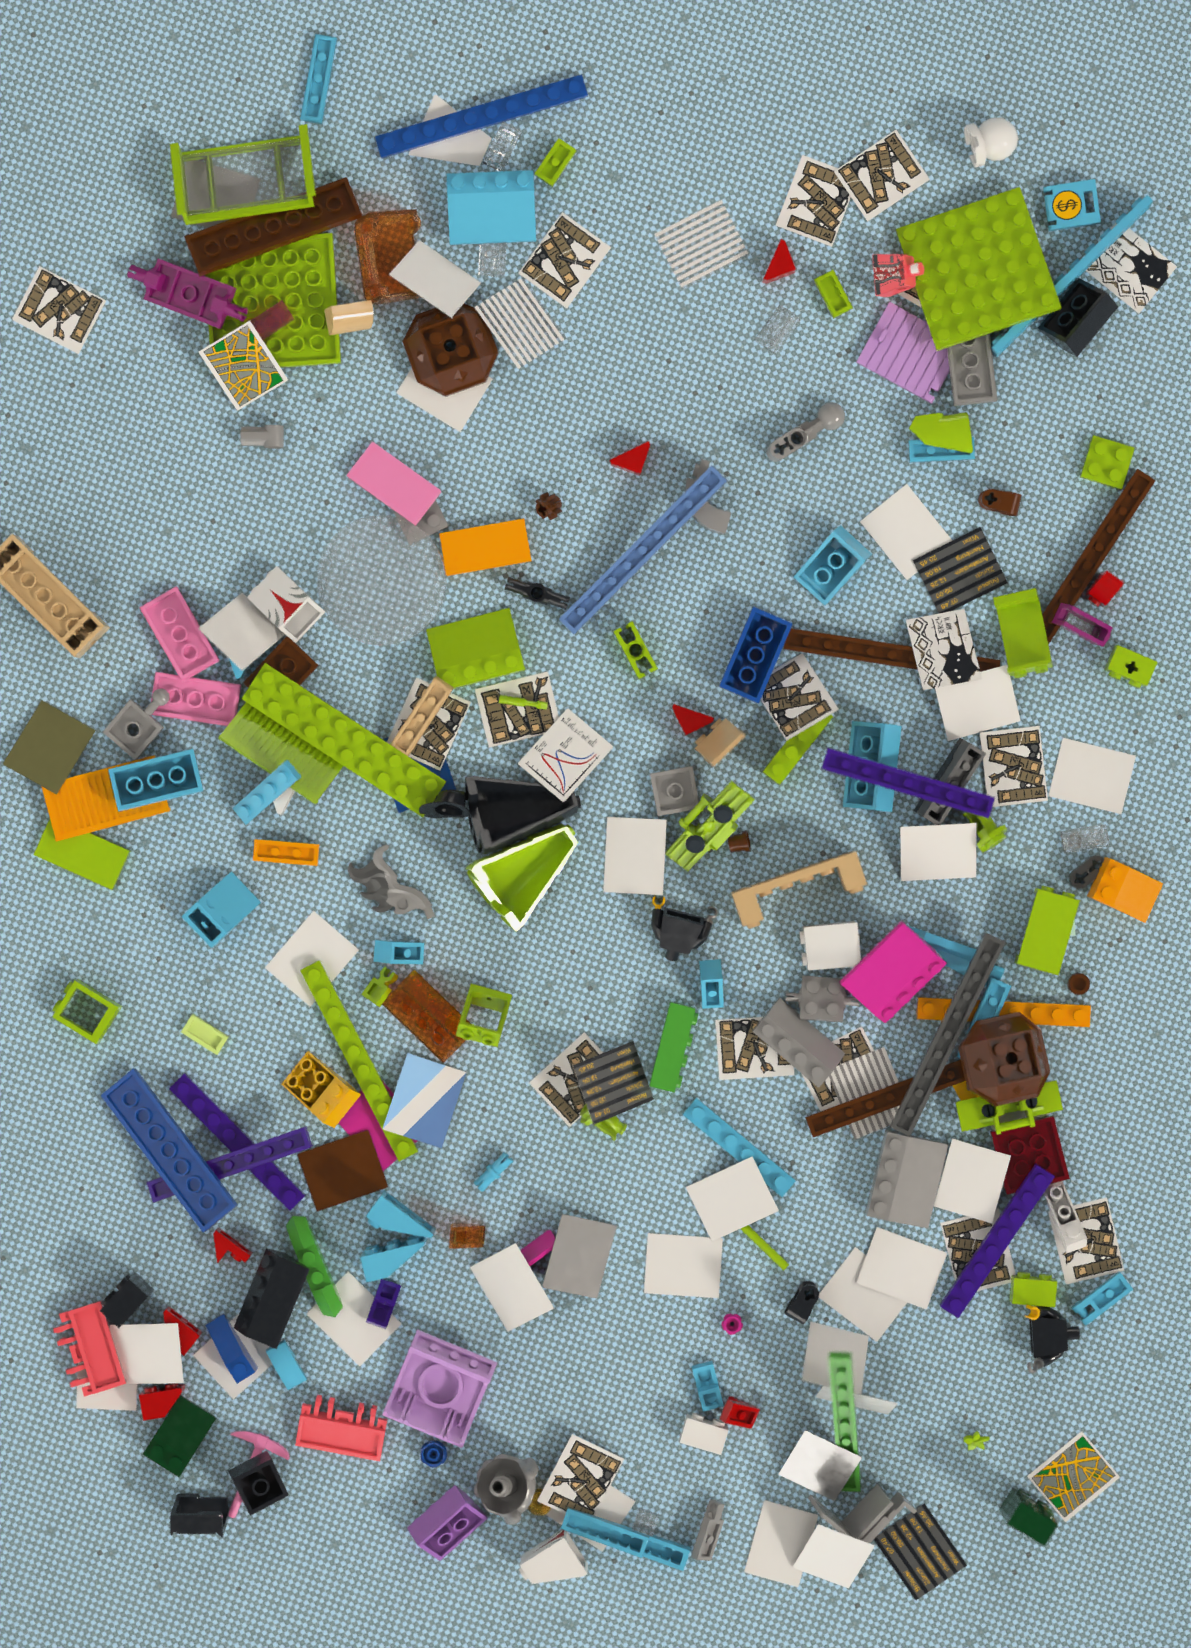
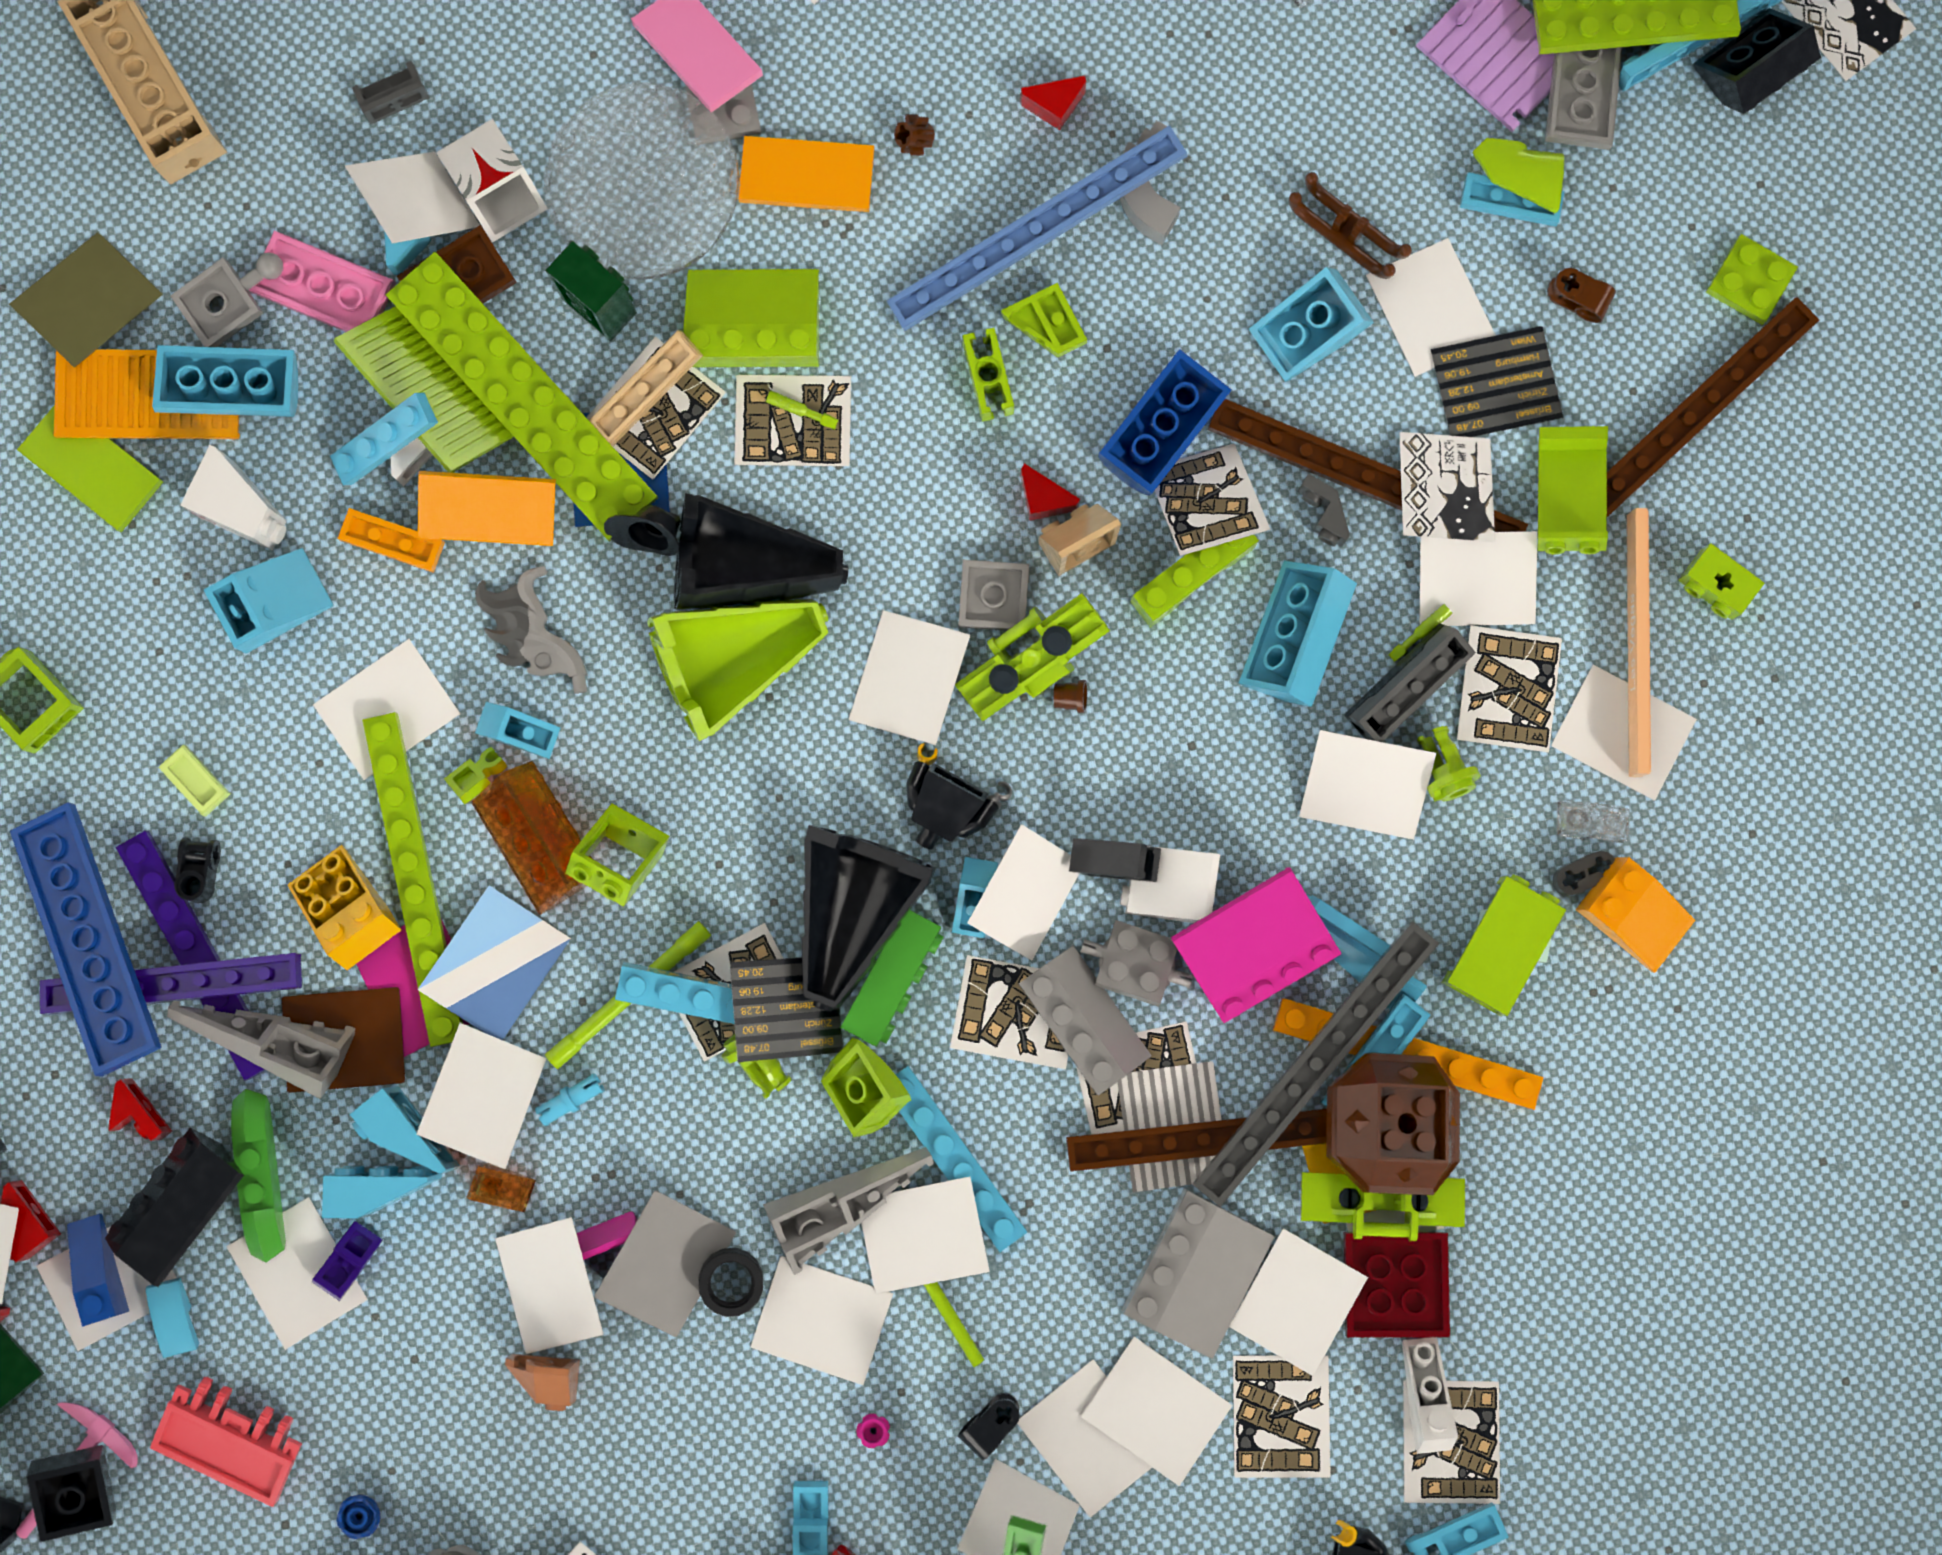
camera: 20 degrees right, 5 degrees down
(179, 634) = (322, 189): bright pink tile -> none
(182, 855) = (232, 501): none -> white slope
(204, 562) = (391, 94): none -> dark grey hinge
(223, 1087) = (197, 866): none -> black piece
(316, 1186) = (293, 1051): none -> light grey wedge
(342, 818) = (486, 508): none -> light orange tile
(373, 665) = (592, 290): none -> dark green brick
(439, 1388) = (394, 1416): lavender panel -> none
(440, 1184) = (481, 1096): none -> white sticker
(486, 1136) = (573, 1042): none -> lime piece
(525, 1343) = (546, 1379): none -> nougat slope
(542, 1090) = (675, 992): none -> medium azure brick
(548, 596) = (851, 246): black pin -> none
(565, 755) = (844, 501): white sticker -> none
(622, 1273) = (730, 1308): none -> black tyre
(638, 1010) = (851, 909): none -> black cone
(664, 605) = (1047, 321): none -> lime wing
(666, 1201) = (820, 1213): none -> light grey wedge
(672, 1119) = (863, 1088): none -> lime slope
(743, 974) = (1025, 893): none -> white sticker
(793, 940) = (1115, 860): none -> black piece
(829, 416) = (1358, 114): light grey beam -> none
(841, 496) = (1347, 229): none -> reddish brown piece
(848, 869) = (1224, 773): tan plate -> none
(876, 689) = (1332, 524): none -> dark grey slope
(908, 783) = (1349, 663): dark purple plate -> none
(949, 745) = (1421, 631): none -> lime piece
(997, 1240) = (1314, 1405): dark purple plate -> none
(1033, 1290) = (1353, 1498): lime brick -> none
(1078, 983) = (1532, 1039): reddish brown tile -> none
(1082, 624) = (1665, 500): magenta window -> none
(1087, 718) = (1638, 643): none -> light nougat tile
(1104, 589) = (1709, 456): red slope -> none

